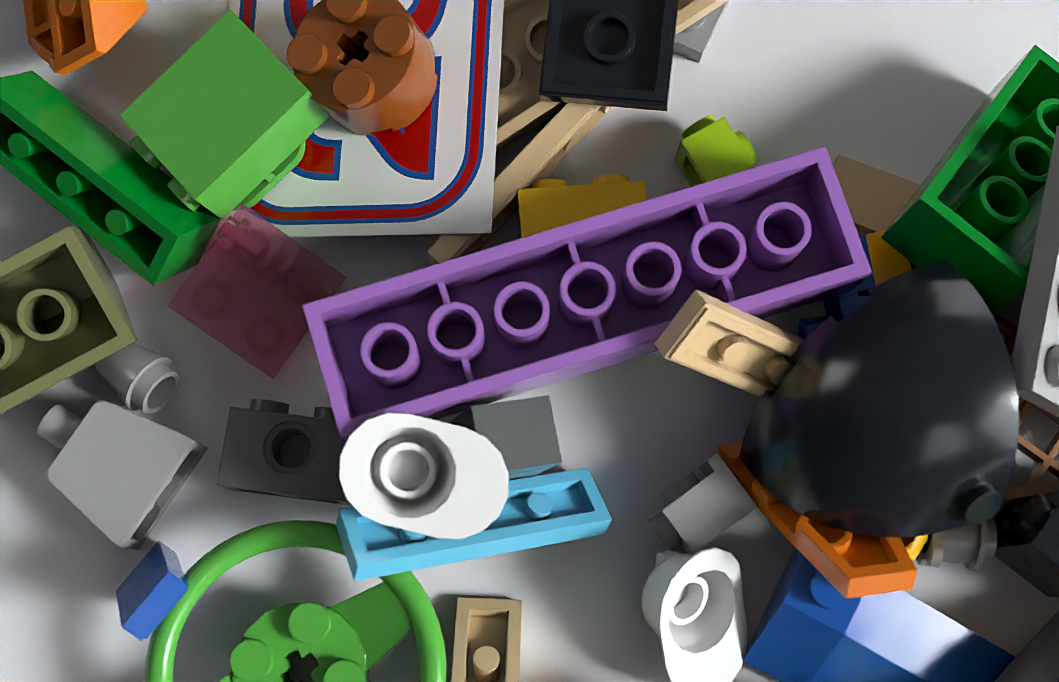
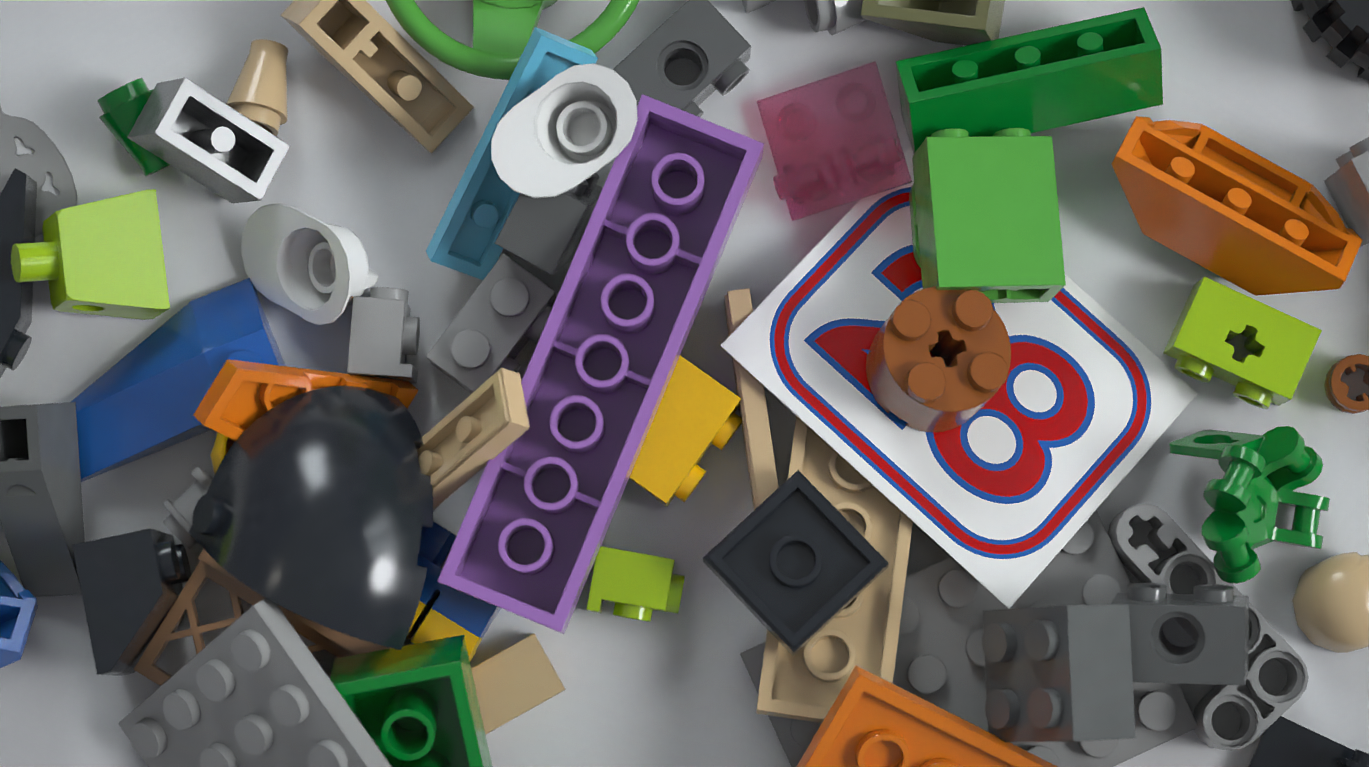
camera: 130 degrees right, 5 degrees up
(623, 425) = (493, 325): none -> light grey brick

